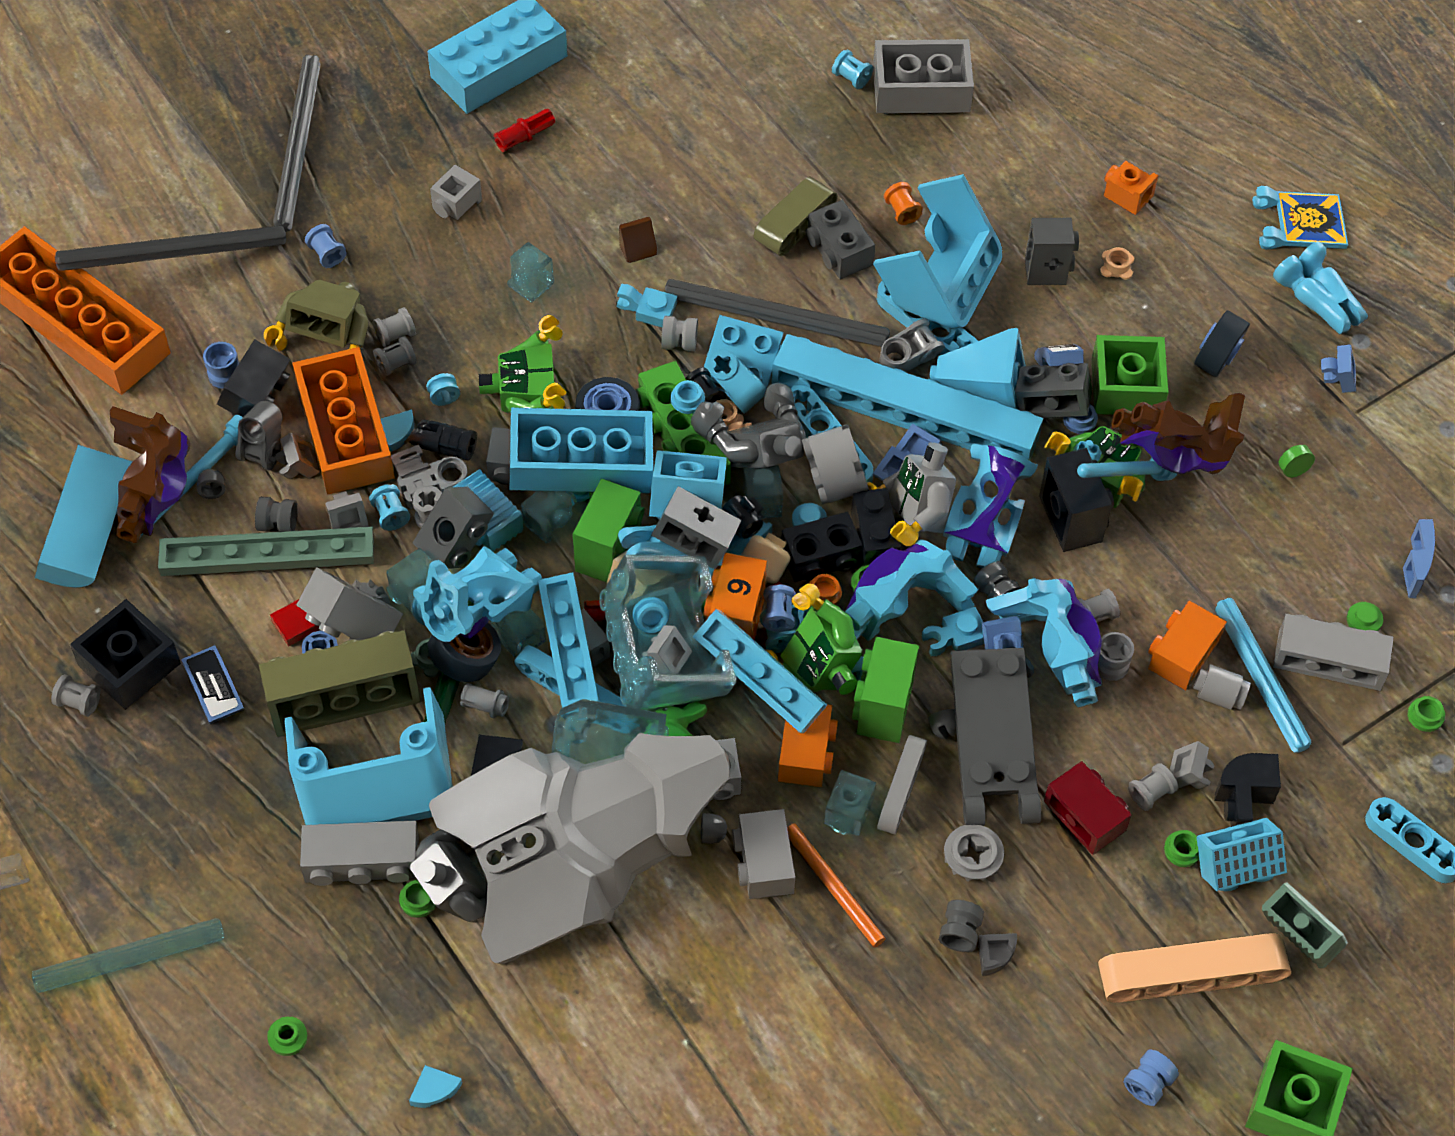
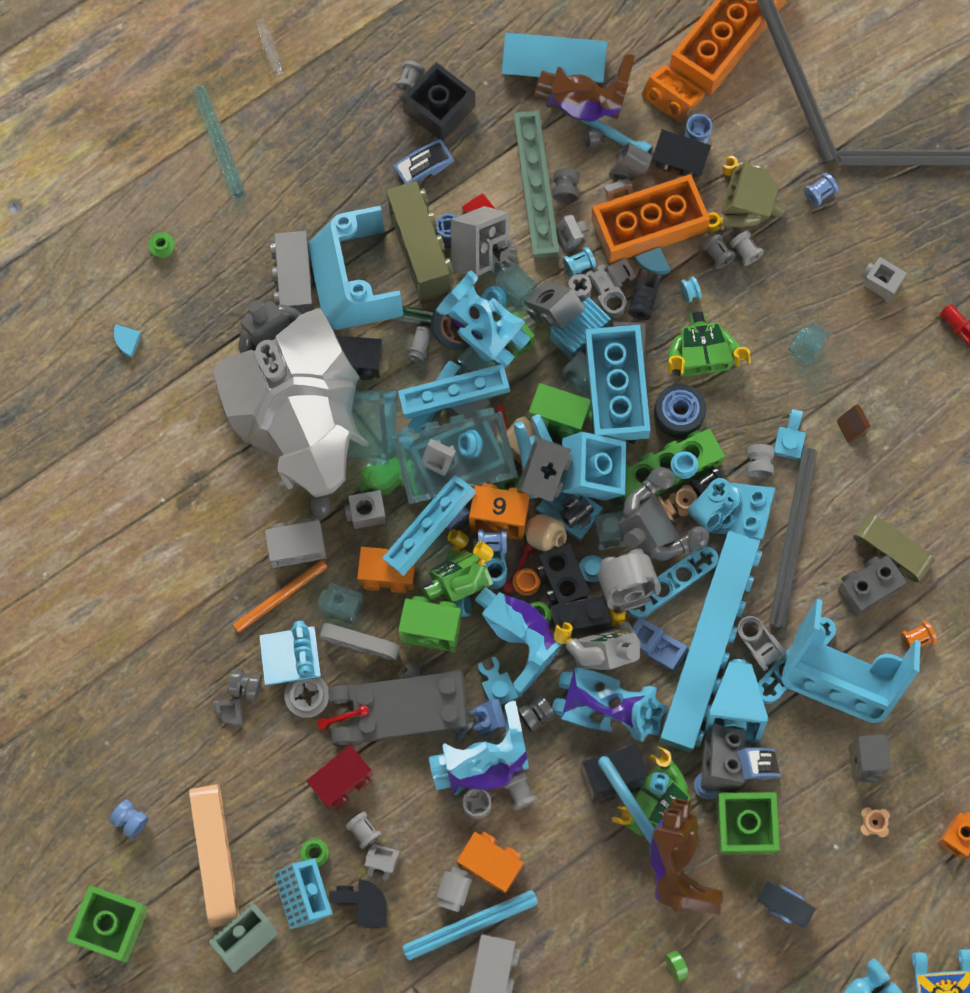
camera: 90 degrees right, 15 degrees up
(162, 389) = (672, 93): none -> orange bracket
(920, 869) = (290, 654): none -> medium azure hinge
(1009, 835) = (324, 723): none -> red hinge

